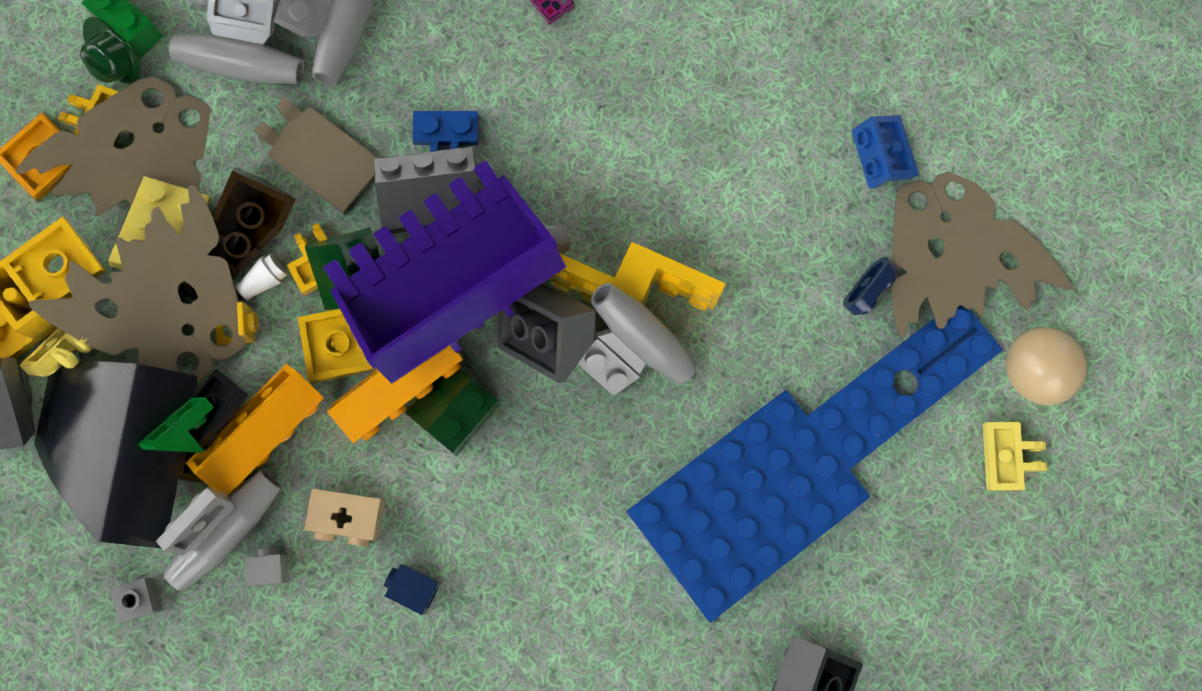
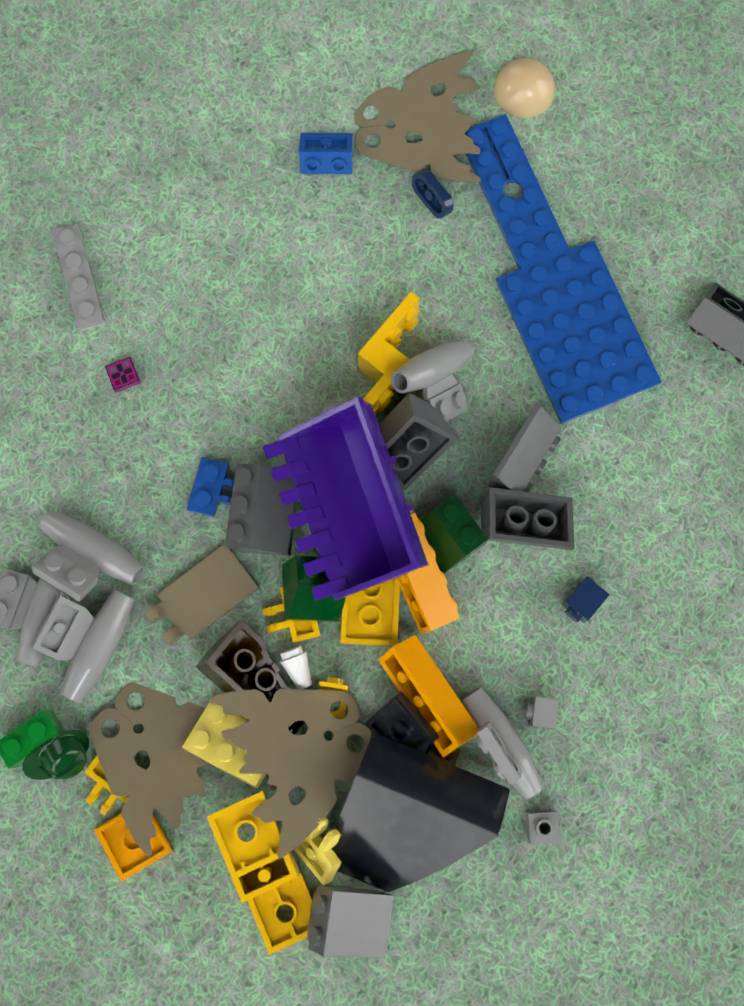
camera: 70 degrees left, 0 degrees up
(173, 432) = (419, 755): green slope -> none
(324, 512) = (515, 623): tan brick -> none
(485, 495) = (528, 518): none -> dark grey slope
(568, 474) = (527, 452): none -> slope
(1005, 458) = (586, 136): light yellow hinge -> none

